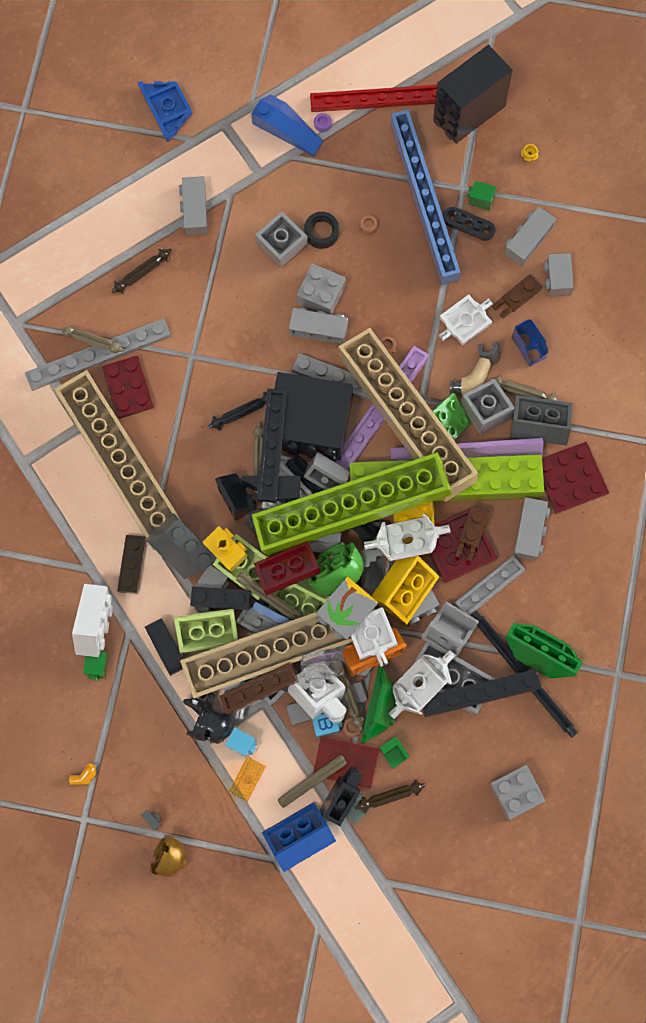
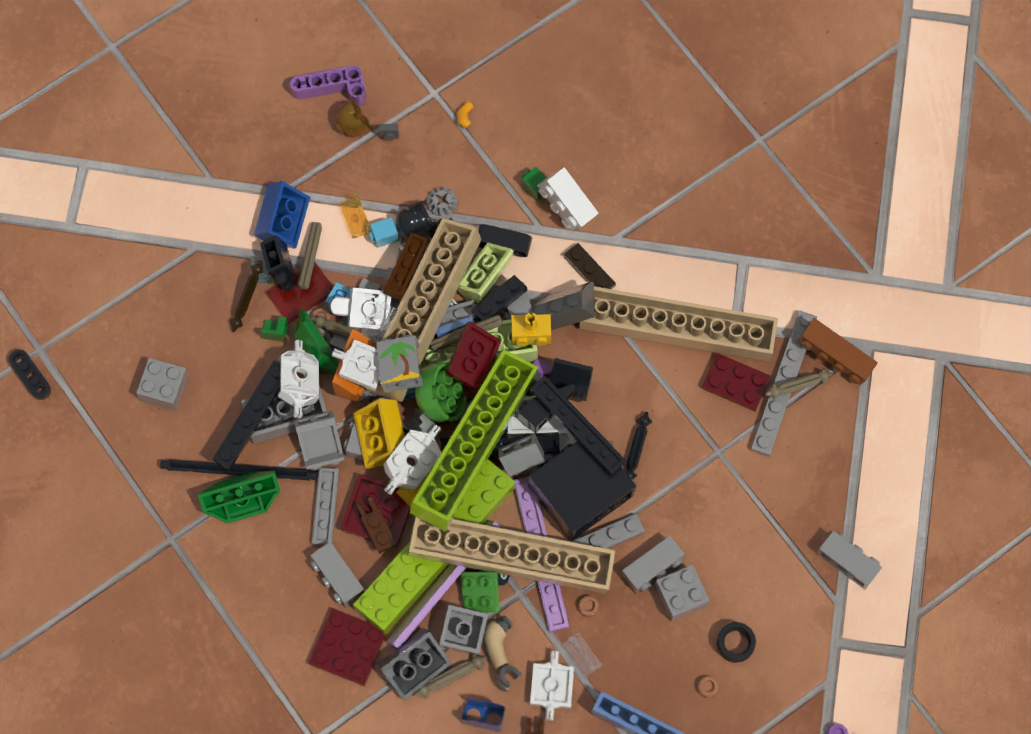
camera: 130 degrees right, 5 degrees down
(42, 333) = (837, 351): none -> dark orange brick
(141, 270) = (828, 473): dark brown wheel -> none
(155, 909) = (329, 87): none -> medium lavender beam
(166, 105) = (966, 618): blue wing -> none
(180, 731) = (442, 209): none -> light grey gear
(243, 527) = (544, 367): none -> medium lavender tile
(281, 239) = (754, 599): light grey brick -> none
(283, 122) = (868, 700): blue wedge -> none
(425, 319) = (582, 654): none -> clear hinge
(610, 897) = (28, 367): none -> black plate

